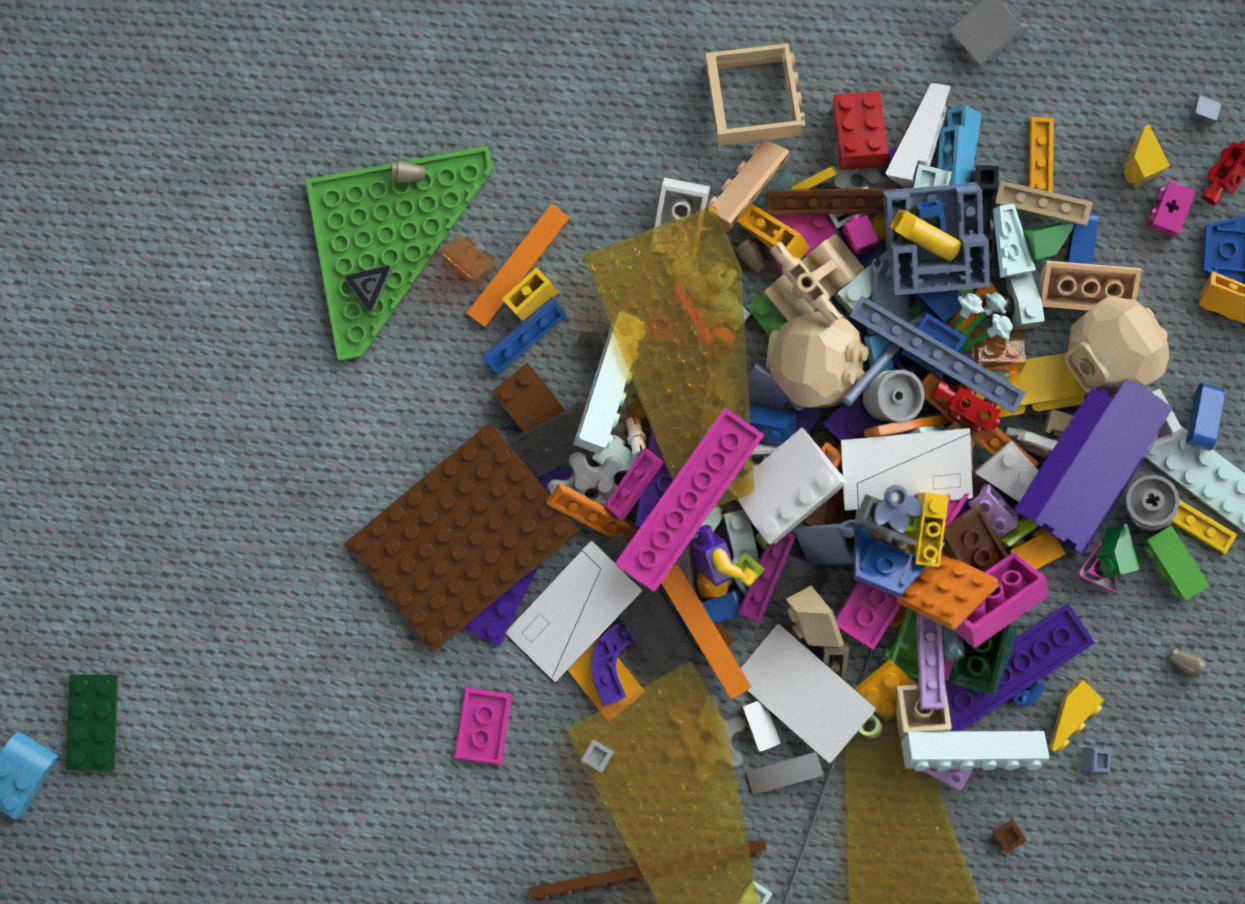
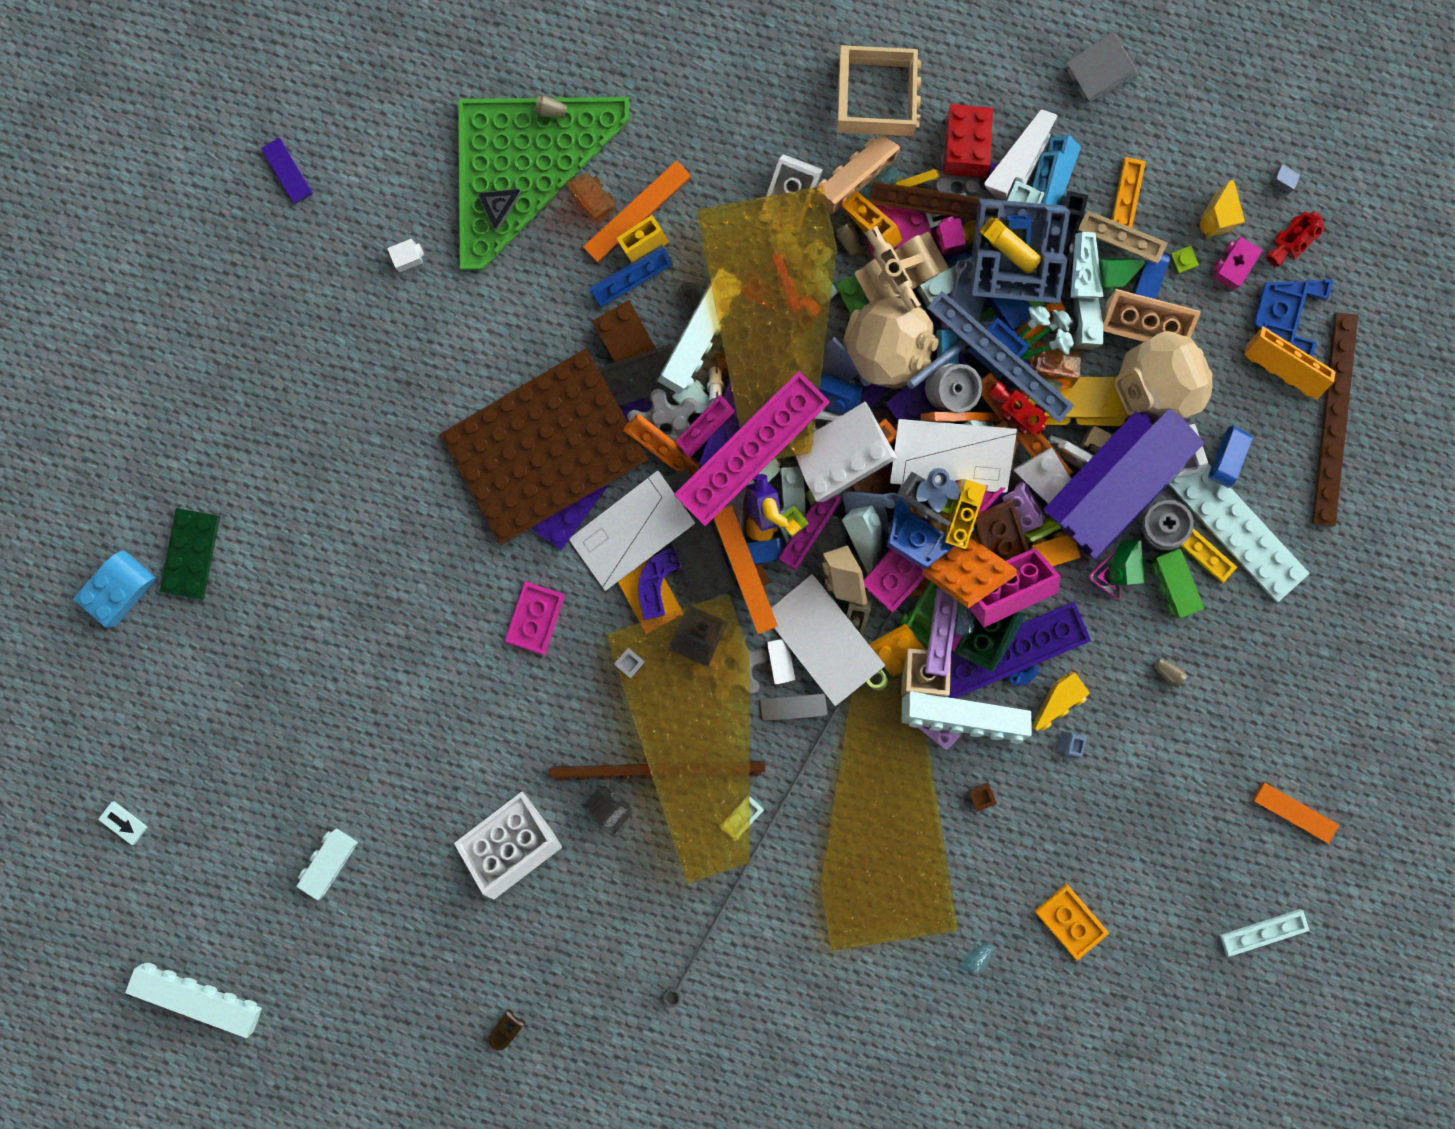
camera: 15 degrees right, 5 degrees up
(132, 287) = (287, 170): none -> dark purple tile
(277, 355) = (406, 255): none -> white brick
(667, 713) = (698, 635): none -> clear smoke slope
(828, 569) = (865, 532): none -> light aqua slope
(1115, 215) = (1184, 260): none -> lime plate

